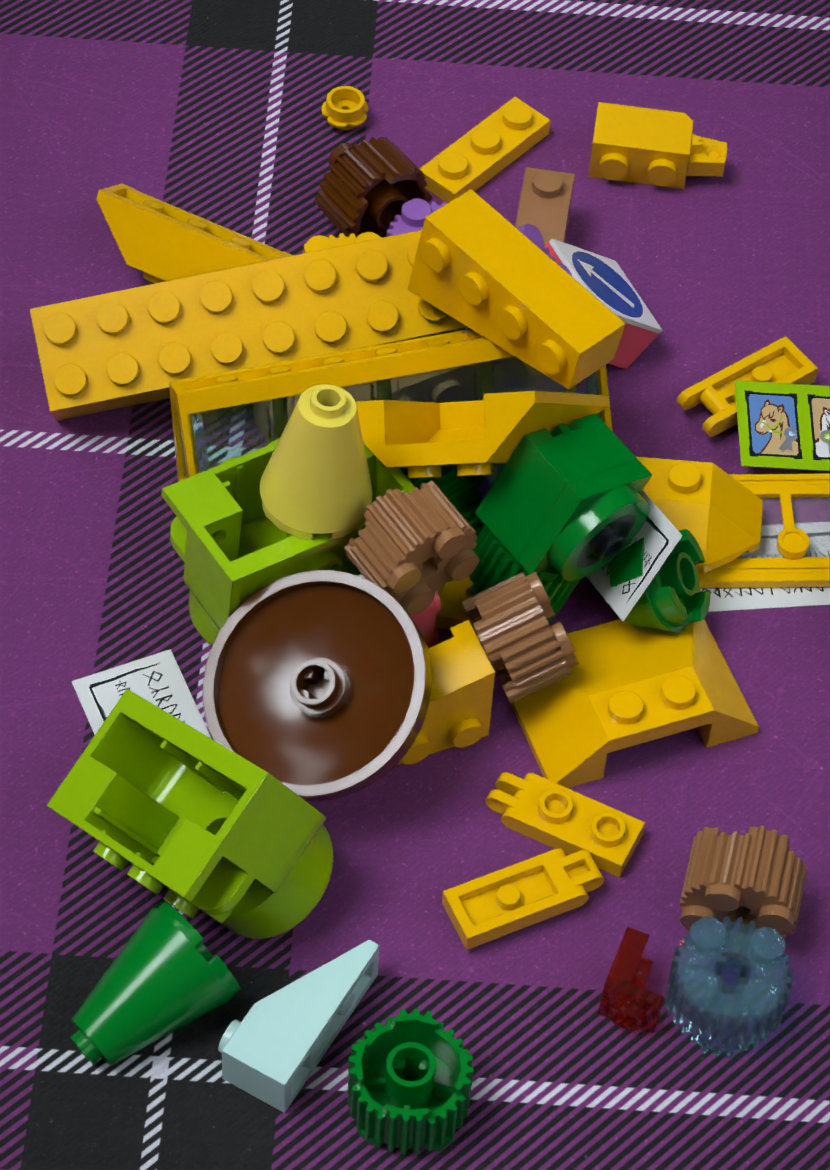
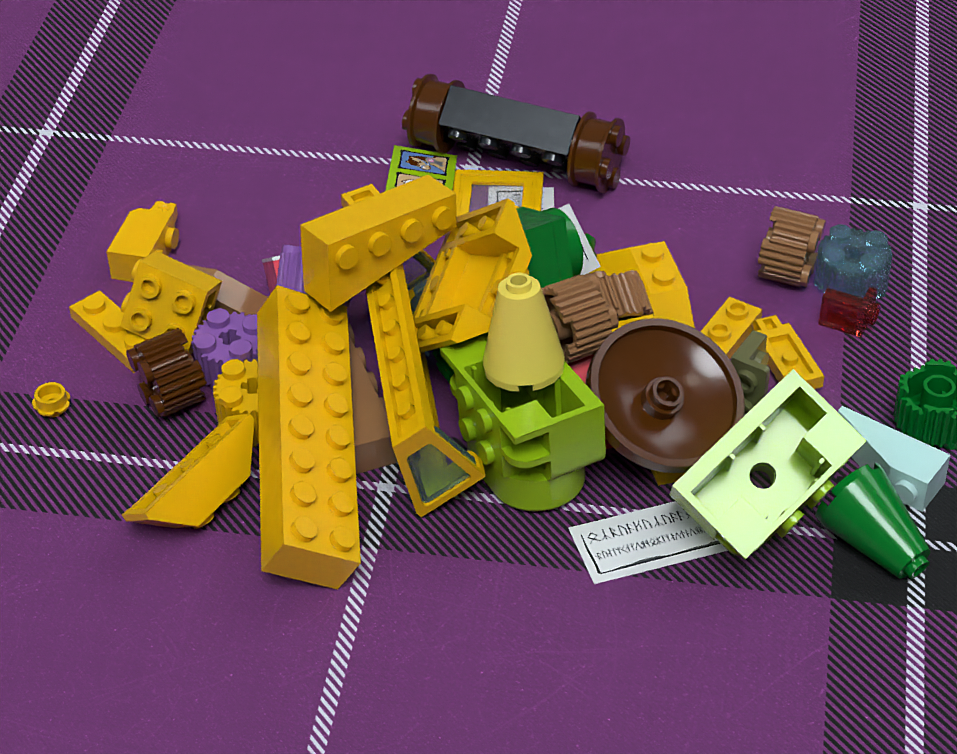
camera: 80 degrees left, 10 degrees down
(426, 822) = (752, 368): none -> olive bracket
(493, 157) = (167, 298): none -> yellow brick

